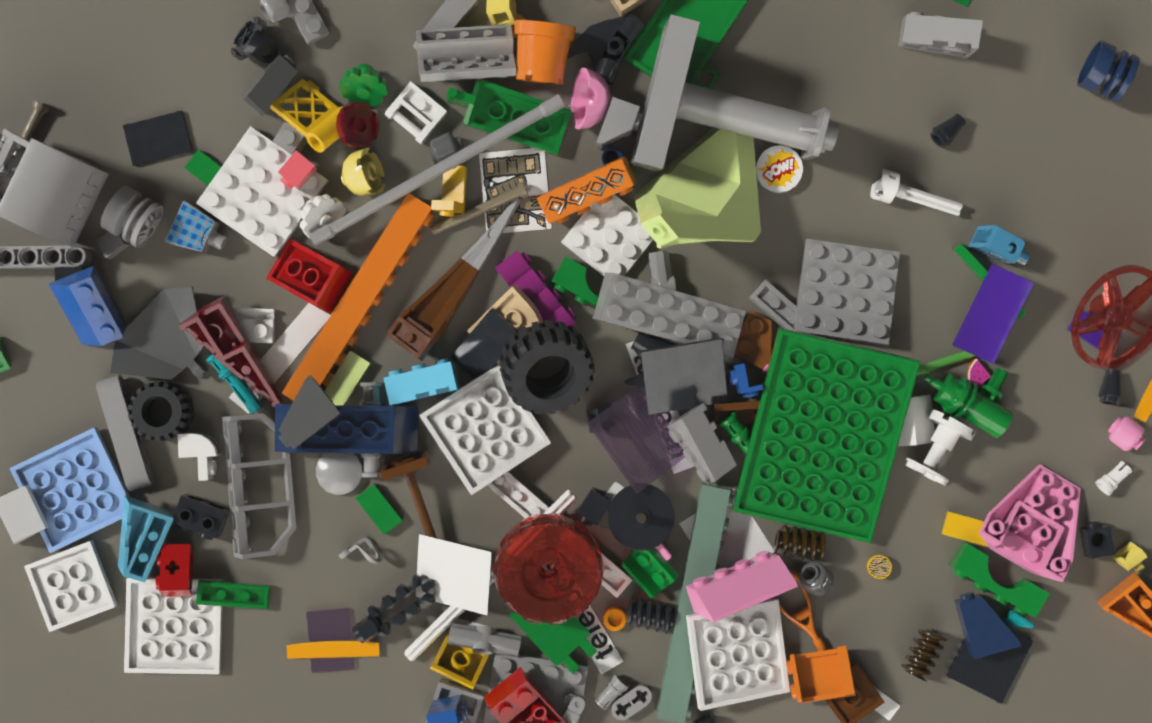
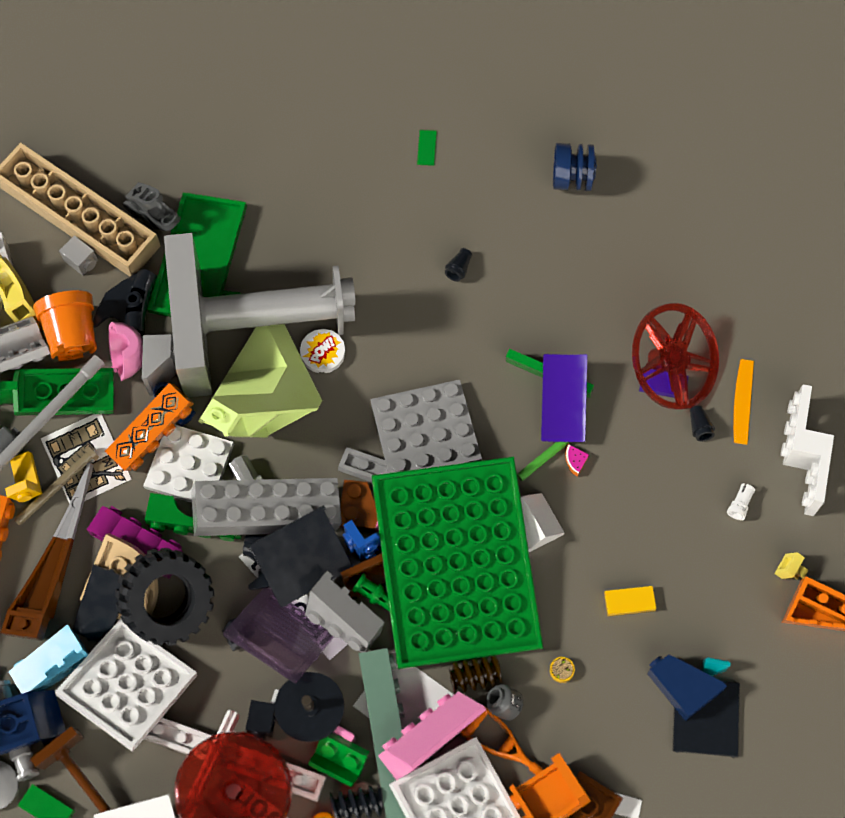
camera: 20 degrees left, 20 degrees down
(890, 186) = (427, 327): white piece -> none
(924, 653) = (638, 735): dark brown piece -> none
(940, 34) = (418, 190): light grey wedge -> none
(944, 439) = (569, 513): white piece -> none
(980, 408) = (583, 484): green piece -> none
(999, 245) = (544, 337): dark azure torso -> none
(1023, 595) = (649, 632): green arch -> none
(1036, 524) = (689, 571): bright pink wedge -> none
(1104, 547) = (752, 573): black brick -> none
(1126, 433) = (733, 457): bright pink head -> none

